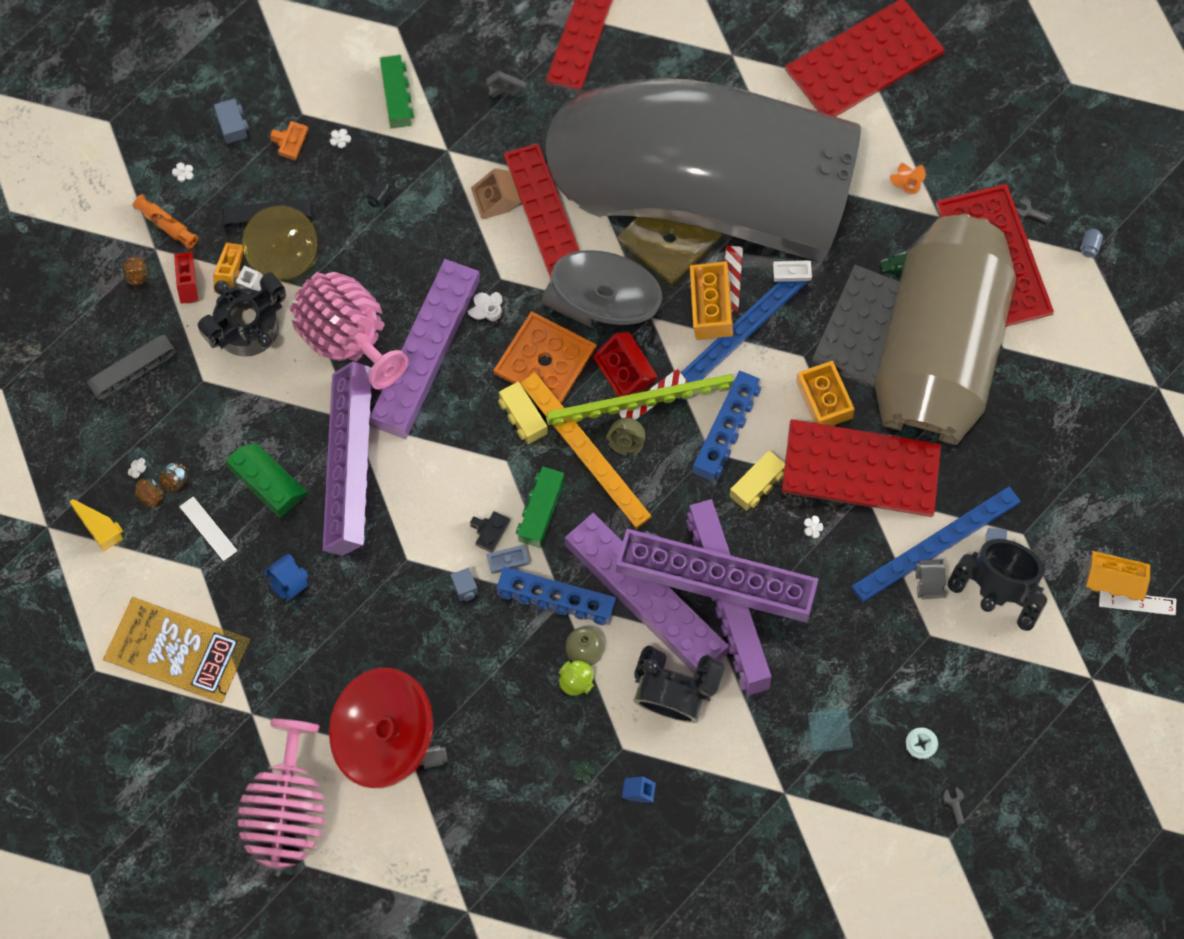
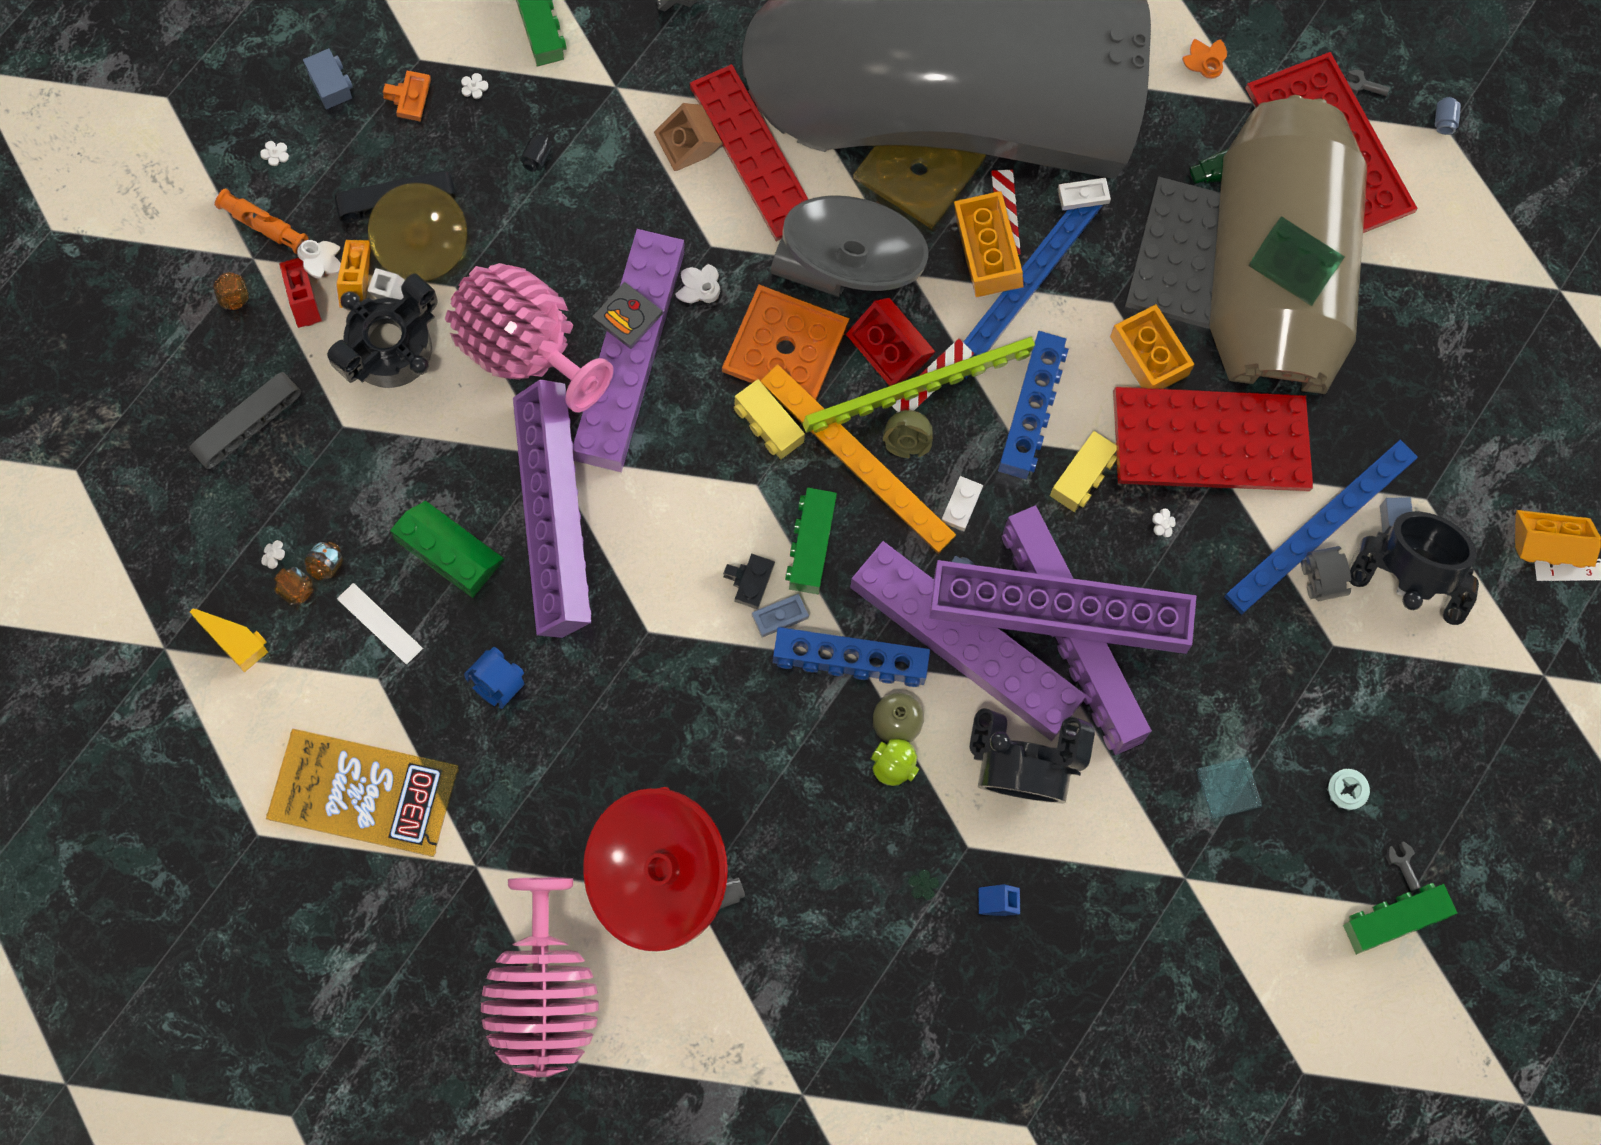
camera: 15 degrees left, 5 degrees up
(204, 253) = (319, 257): none -> white plate
(426, 322) = (627, 315): none -> dark grey tile
(464, 584) = (729, 657): sand blue brick -> none
(660, 493) = (962, 503): none -> white plate
(938, 338) = (1296, 261): none -> clear green slope
(943, 844) = (1400, 918): none -> green brick

